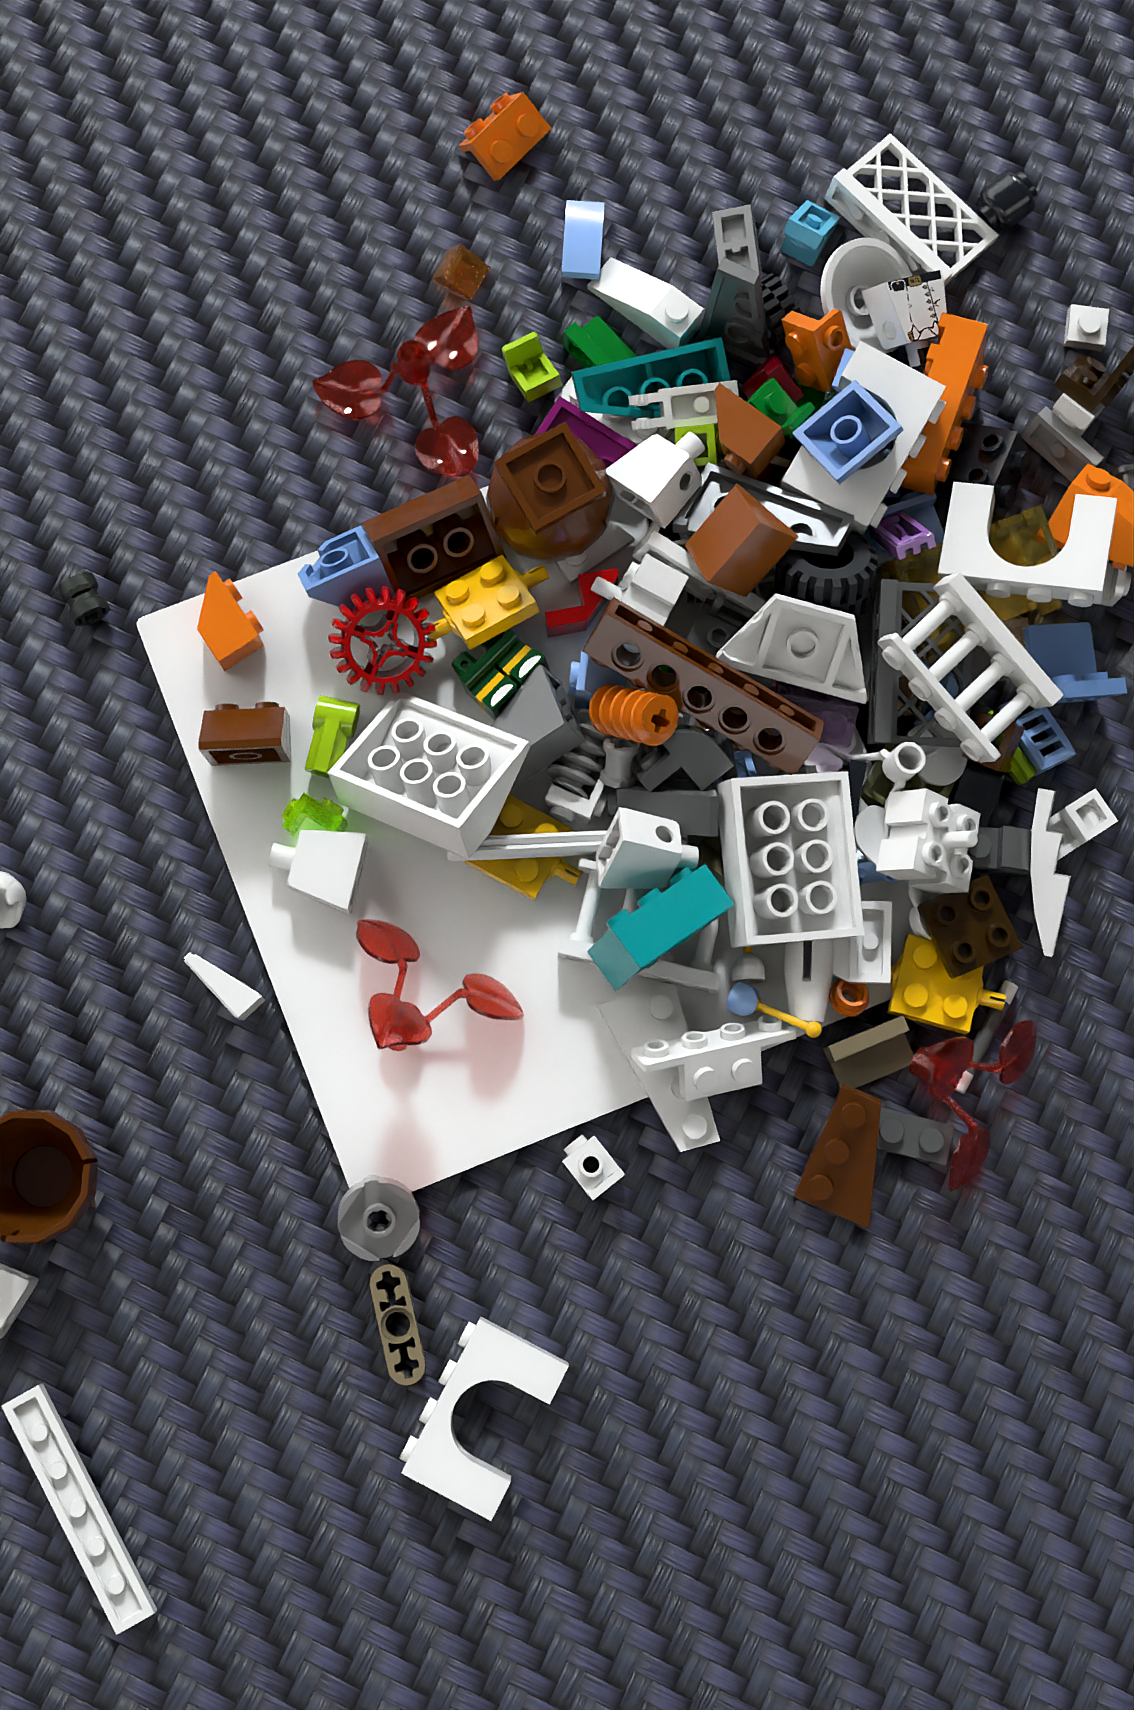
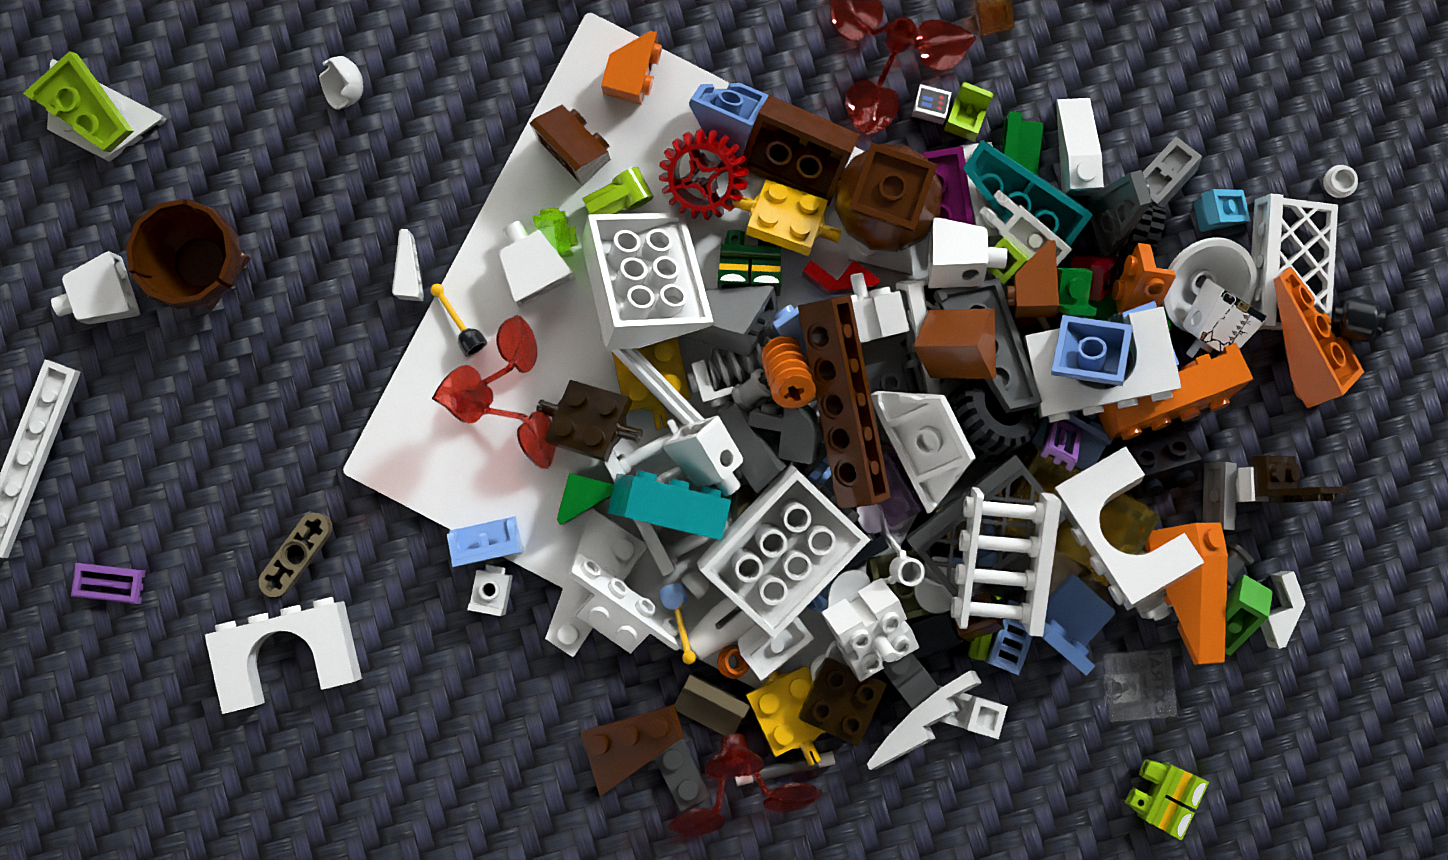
camera: 55 degrees right, 5 degrees up
(295, 1505) = (135, 586): none -> medium lavender tile
(342, 983) = (469, 340): none -> hinge
(372, 1196) = (356, 472): light grey plate -> none
(495, 394) = (931, 104): none -> slope
(515, 936) = (589, 420): none -> dark brown plate
(542, 1130) = (484, 541): none -> light blue hinge
(578, 1001) = (581, 496): none -> green slope
(582, 240) = (1084, 70): light blue slope -> none
(872, 113) = (1340, 181): none -> white plate
(1016, 263) = (1317, 359): none -> orange wedge
(1086, 327) = (1318, 444): white plate -> none

